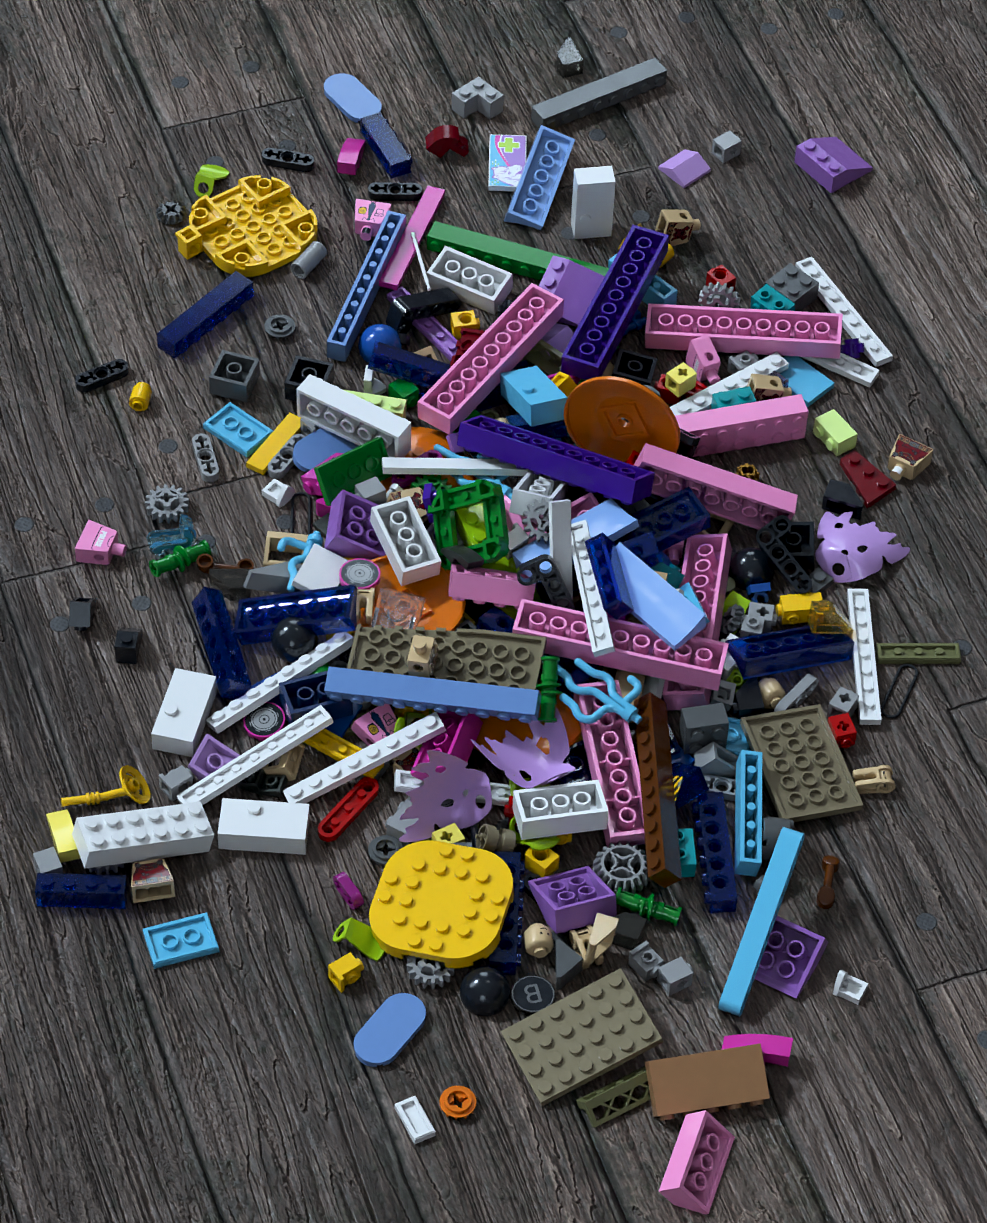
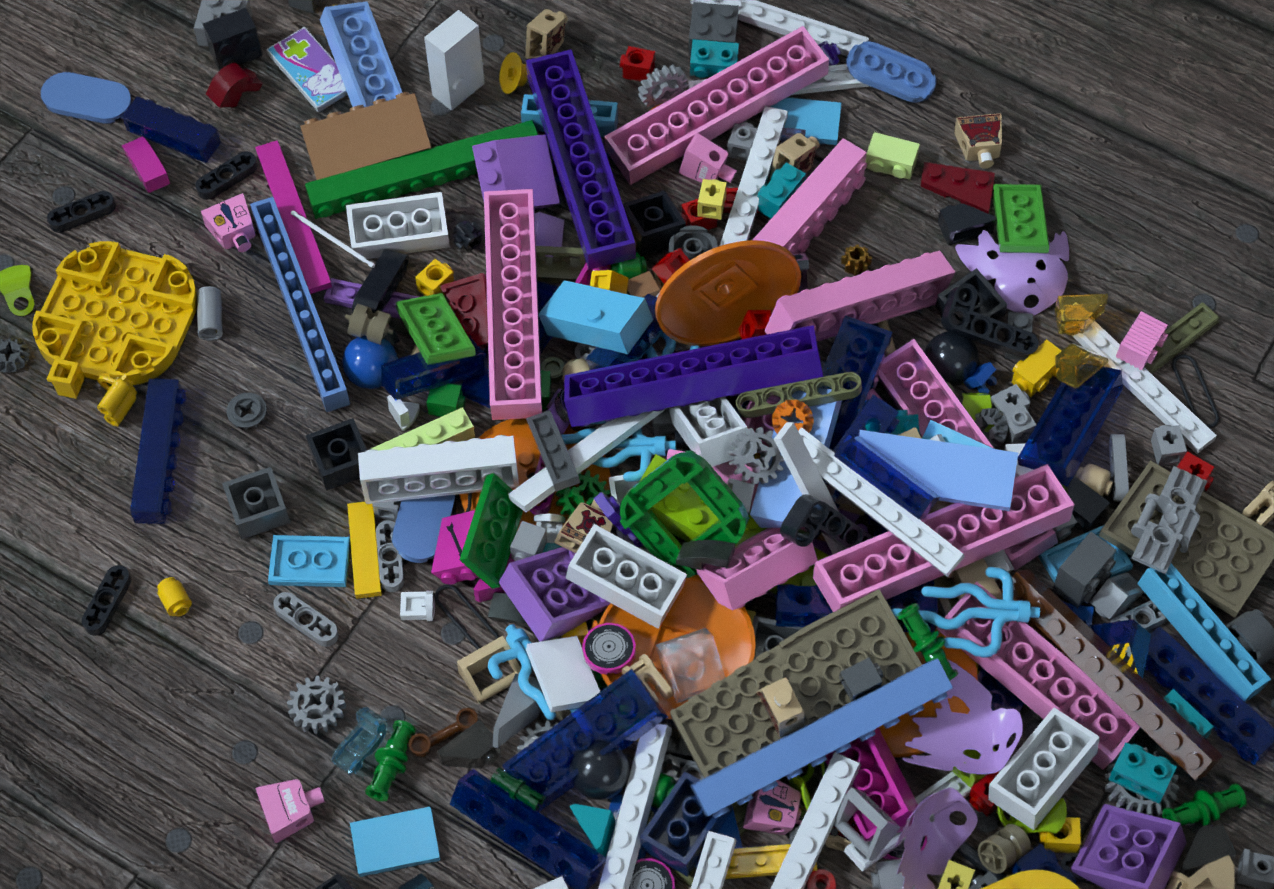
camera: 35 degrees left, 10 degrees up
(143, 603) = (394, 841): none -> medium azure tile
(208, 272) = (117, 400): none -> yellow piece
(234, 615) = (517, 789): none -> dark green pin
(263, 667) = (596, 824): none -> teal slope
(389, 314) = (370, 324): none -> dark tan wheel
(416, 748) = (885, 825): none -> light grey tile
(431, 450) = (553, 450): none -> dark grey plate
(432, 346) = (435, 328): none -> bright green tile
(471, 113) = (232, 39): none -> black brick
(486, 673) = (861, 678): none -> dark grey brick
(498, 214) = (365, 135): none -> medium nougat brick
(596, 511) = (786, 408): none -> orange gear
(613, 513) = (810, 387): none -> olive beam
(619, 852) = (1142, 772): none -> teal brick
(791, 738) = (1177, 523): none -> light grey piece
(860, 591) = (1078, 312): none -> clear yellow slope
(882, 518) = (1020, 218): none -> bright green tile
(886, 384) = (891, 71): none -> medium blue tile
(886, 633) = (1141, 341): none -> bright pink brick

